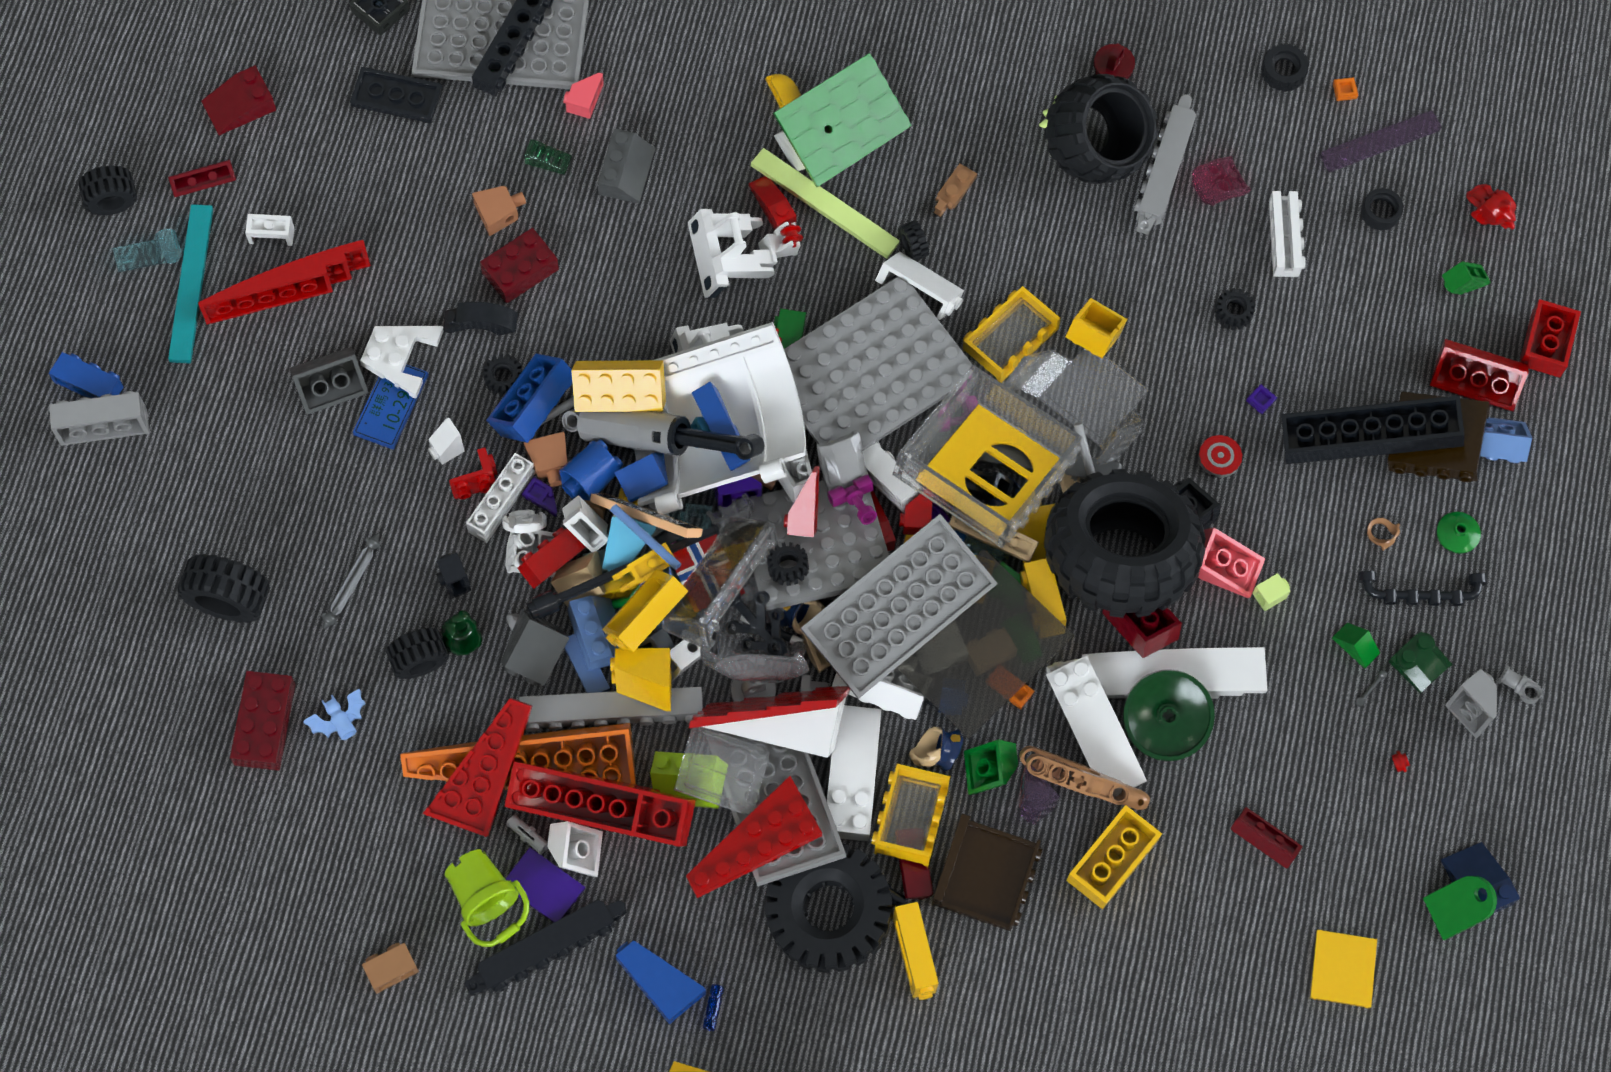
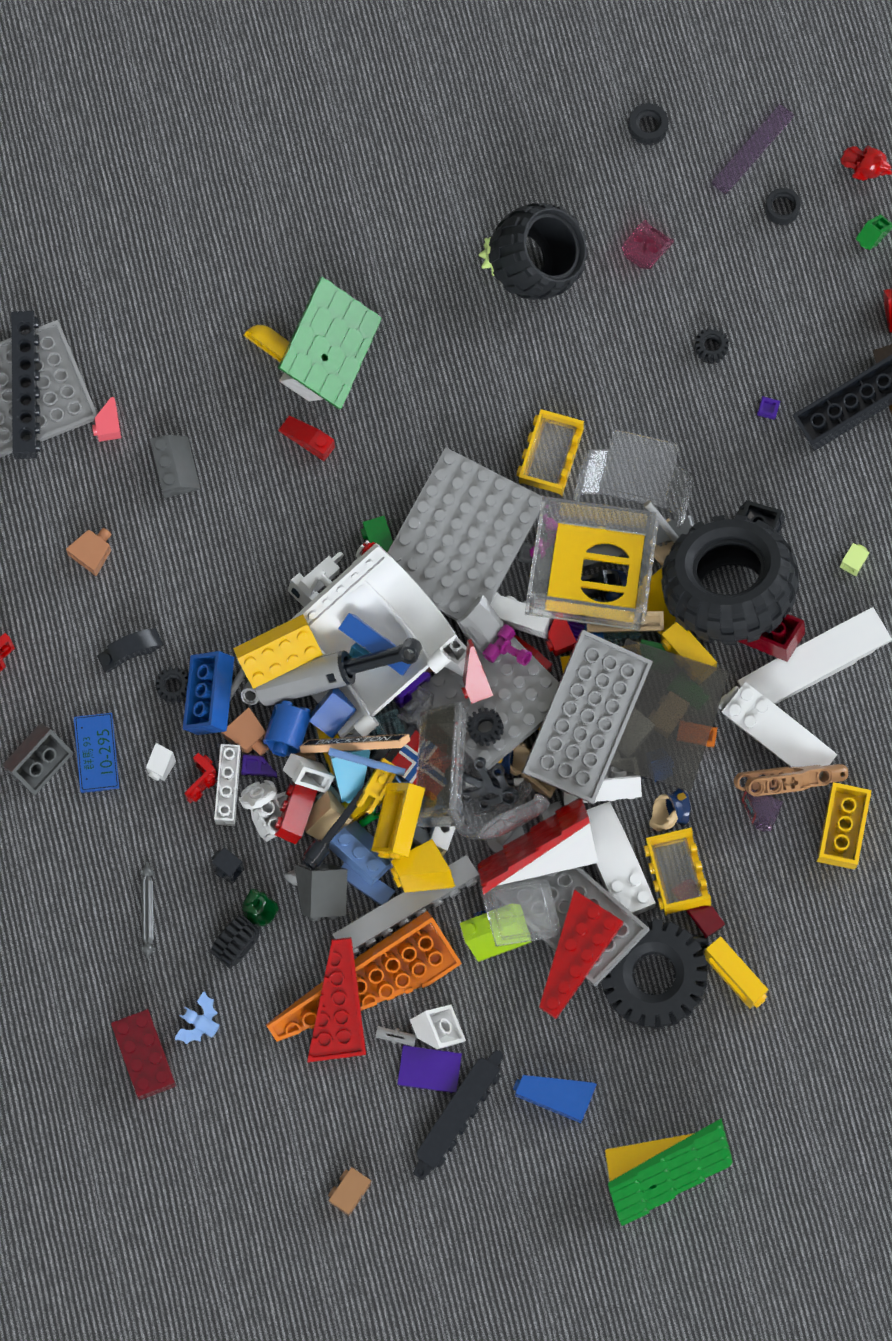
camera: 25 degrees left, 5 degrees up
(223, 588) = (57, 968): black tyre -> none
(390, 350) = (72, 709): white wing -> none
(484, 895) = (391, 1098): lime piece -> none
(519, 265) = (136, 589): dark red brick -> none
(542, 148) = (106, 481): clear green slope -> none
(600, 803) = (442, 984): red slope -> none
(713, 1007) = (607, 1093): clear blue axle -> none
(718, 267) = (295, 514): white container -> none
(825, 203) = (348, 416): yellowish green tile -> none
(913, 240) = (436, 413): black tyre -> none
(924, 280) = (462, 443): white panel -> none
(954, 189) = (443, 353): medium nougat hinge -> none
(987, 874) = (756, 887): dark brown panel -> none
(990, 765) = (715, 803): green slope -> none
(1096, 328) = (615, 415): yellow piece -> none
(1114, 60) = (512, 185): dark red tile -> none
(1166, 165) = (599, 259): light grey hinge -> none
(1168, 715) = (828, 696): dark green dish -> none
(1220, 456) = (760, 470): red tile -> none
(1229, 564) = (814, 552): coral slope -> none
(1286, 235) = (719, 263): white brick -> none
(1345, 89) = (703, 118): orange tile -> none

